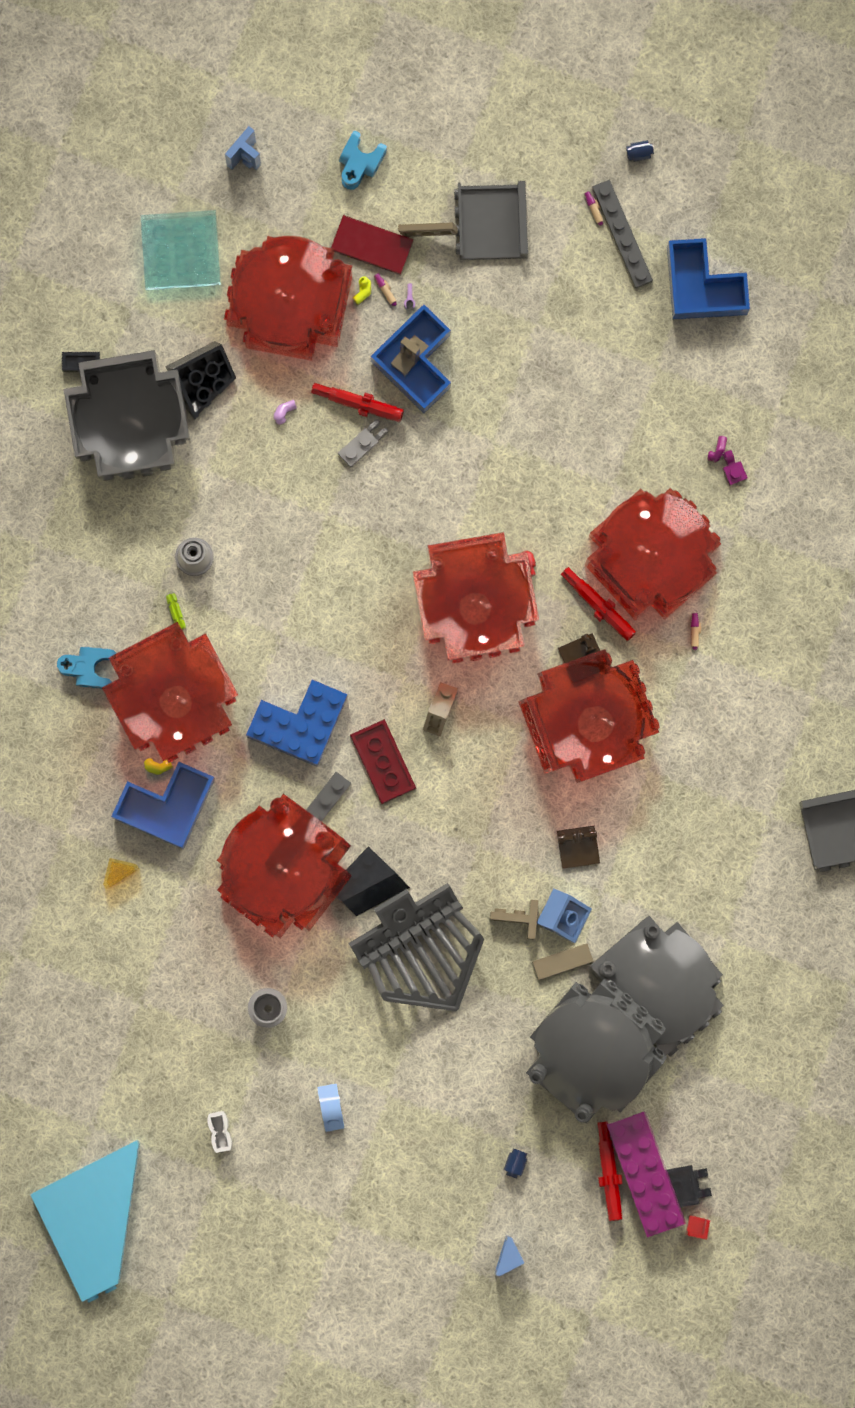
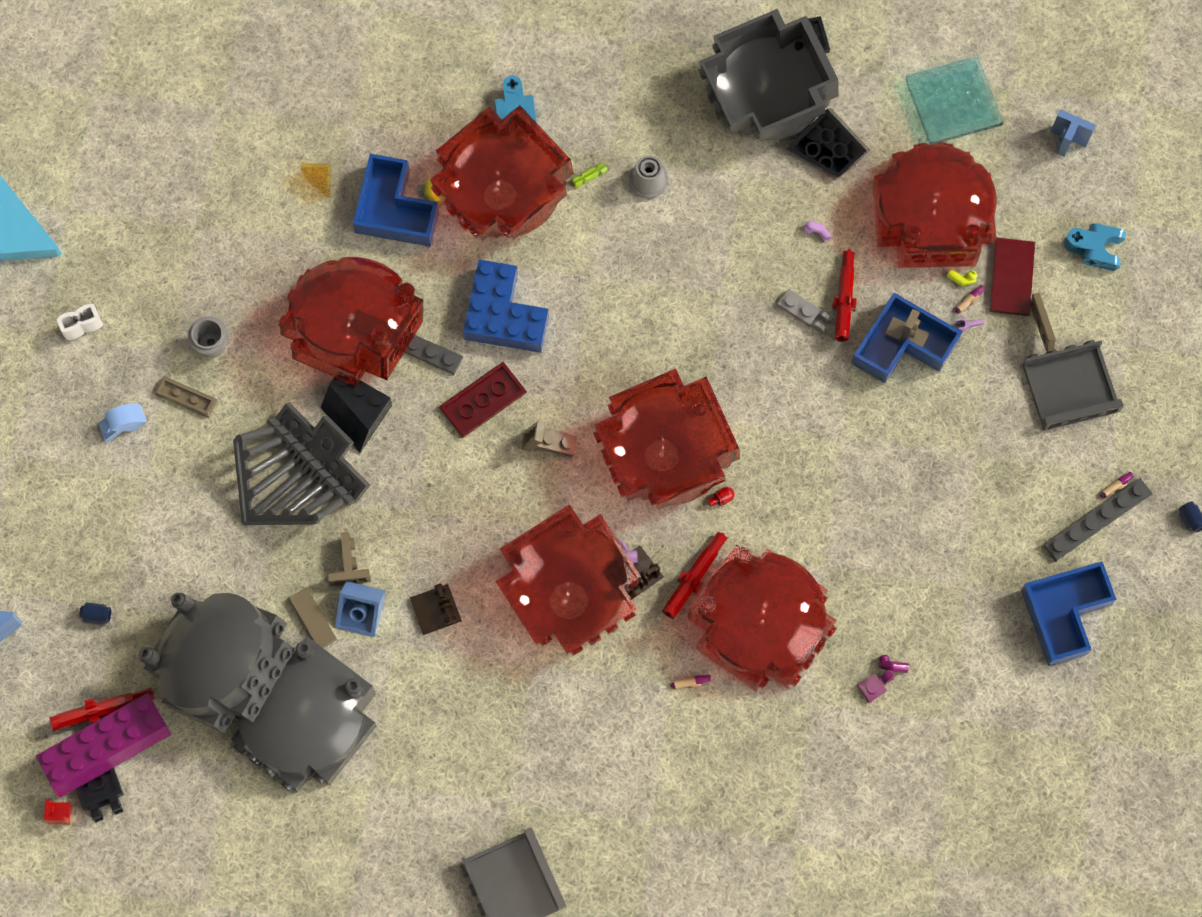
camera: 85 degrees right, 10 degrees down
(316, 1042) = (186, 396): none -> dark tan tile
(568, 656) = (631, 554): none -> lavender hand

